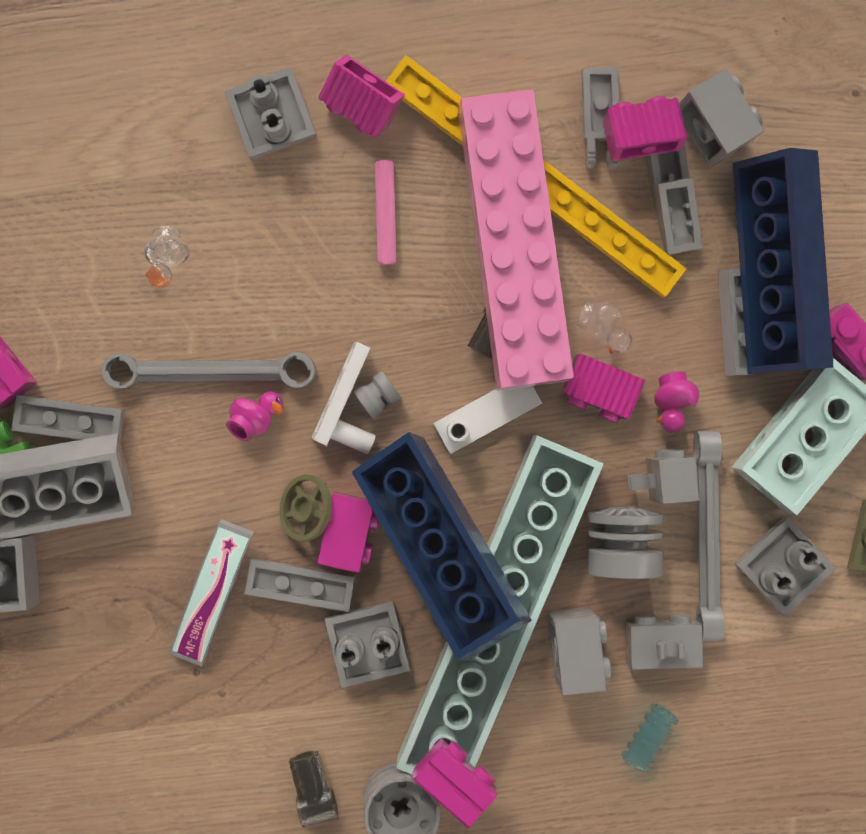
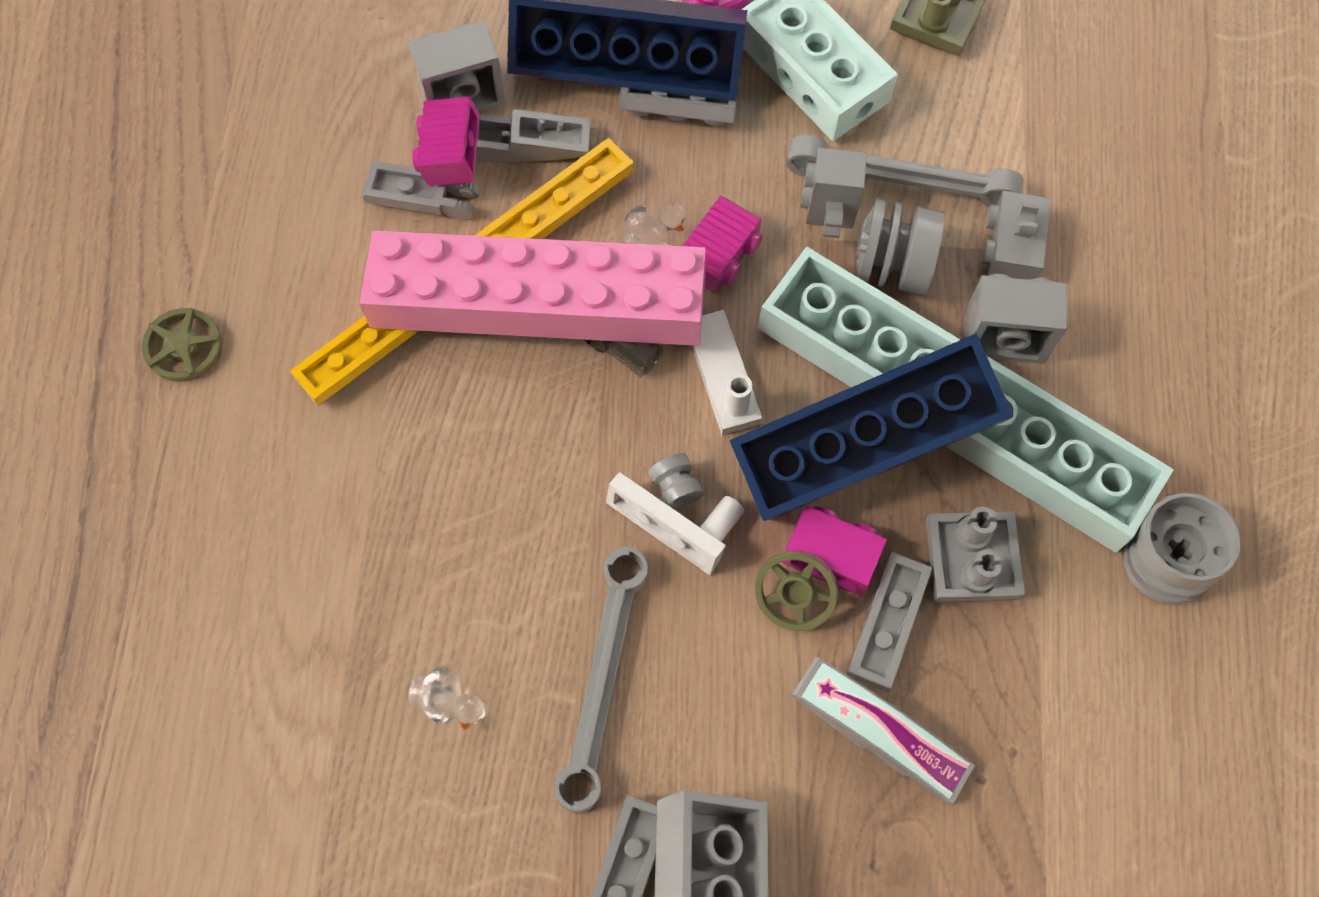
camera: 80 degrees left, 20 degrees down
(252, 419) = (671, 633): dark pink animal -> none
(270, 113) = (309, 537): light grey plate -> none
(315, 799) = (1158, 656): clear smoke piece -> none
(360, 96) = (322, 427): dark pink brick -> none
(385, 212) = (463, 433): bright pink axle -> none
(455, 782) = (1157, 466): dark pink brick -> none
(649, 737) = (1122, 273): clear light blue piece -> none
(674, 394) = (743, 178): dark pink animal -> none
(784, 566) = (949, 108): light grey plate -> none

